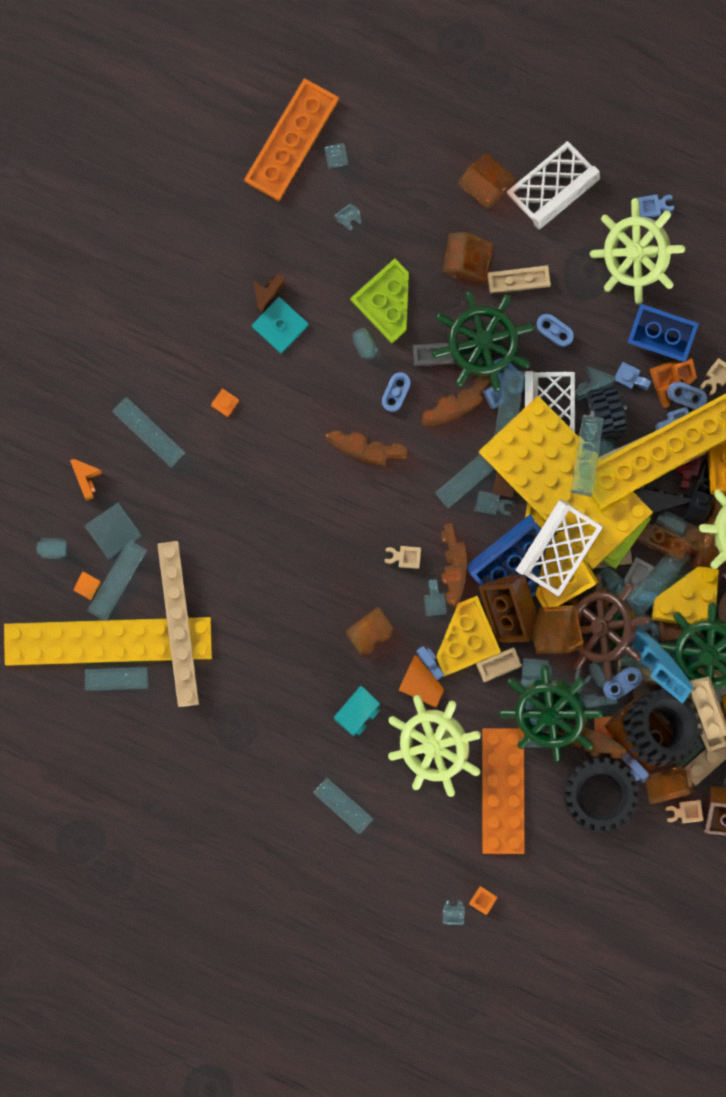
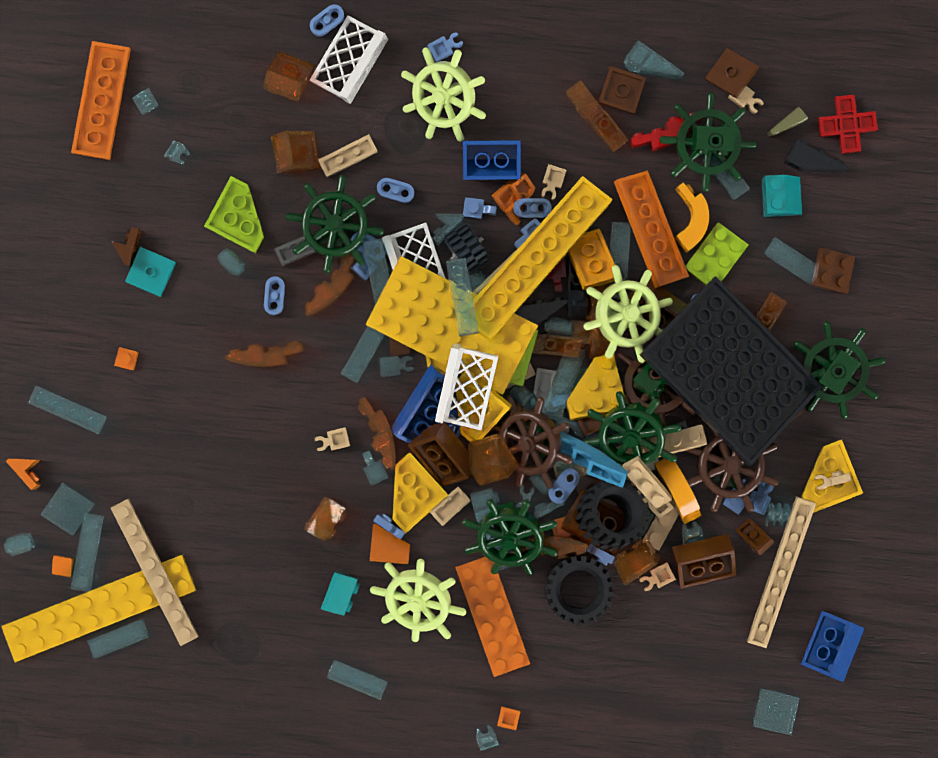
camera: 25 degrees left, 5 degrees up
(544, 138) = (325, 19): none -> medium blue plate

